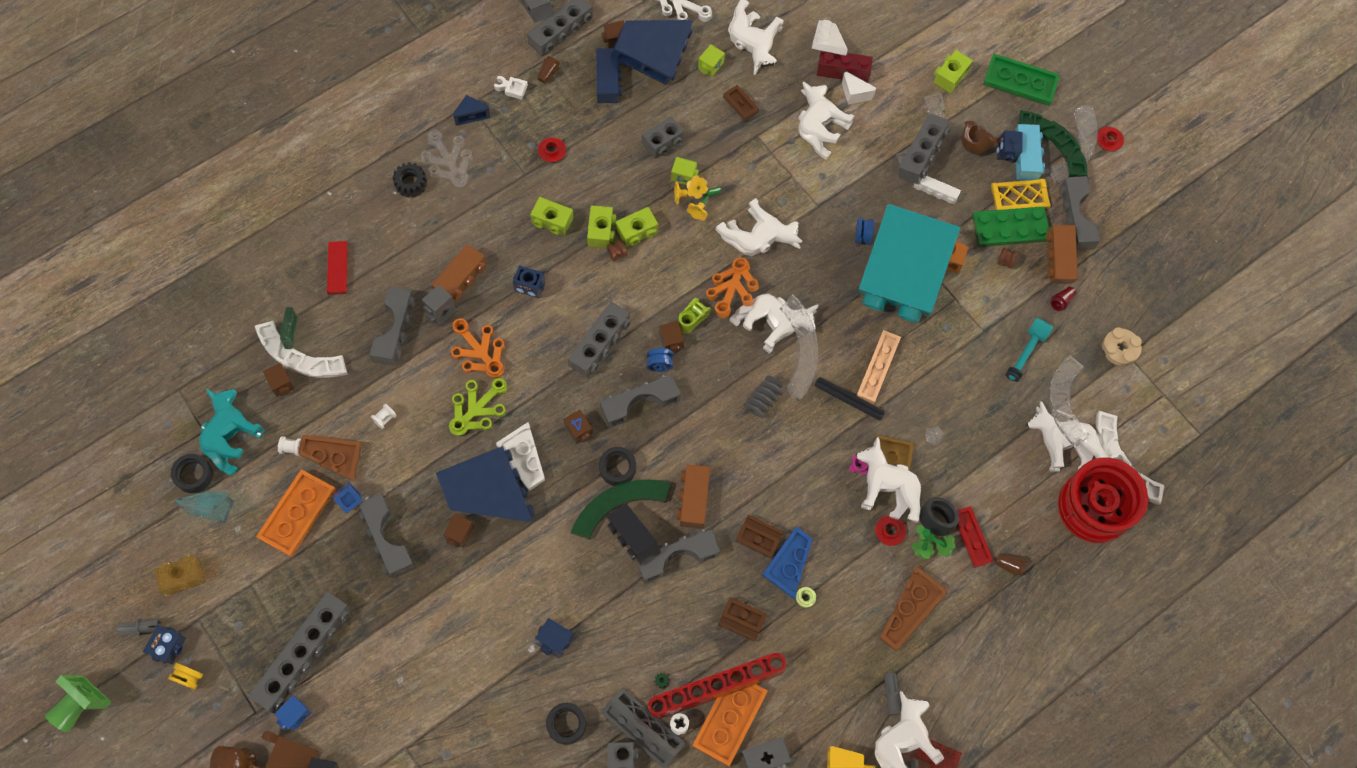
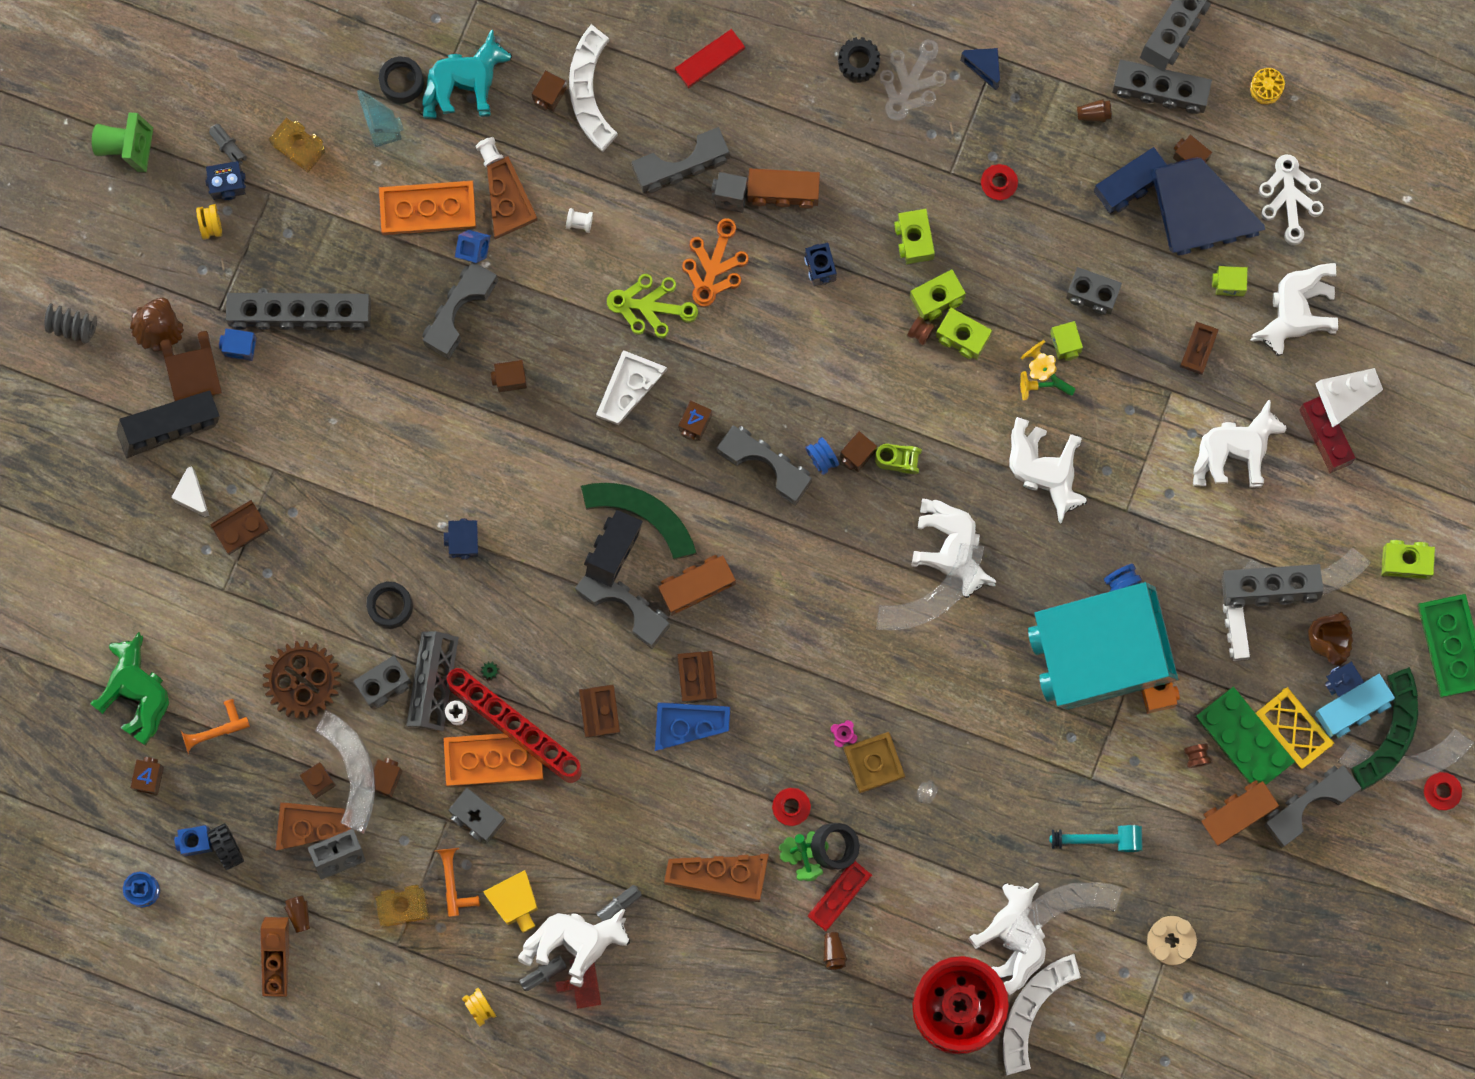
camera: 65 degrees right, 10 degrees up
(288, 328) = (608, 59): clear green plate -> none
(486, 487) = (569, 374): dark blue slope -> none
(513, 87) = (1047, 90): white plate -> none
(611, 315) = (794, 371): dark grey brick -> none
(617, 451) = (697, 487): black tyre -> none
(739, 268) = (959, 478): orange plant -> none
(763, 396) = (852, 589): dark grey piece -> none
(805, 591) = (664, 753): yellowish green plate -> none
(849, 398) = (912, 680): black axle -> none
(856, 89) = (1304, 466): white slope -> none
(878, 367) = (969, 689): light nougat plate -> none
(888, 479) = (843, 771): white animal -> none
(1062, 299) = (1187, 844): dark red cone -> none

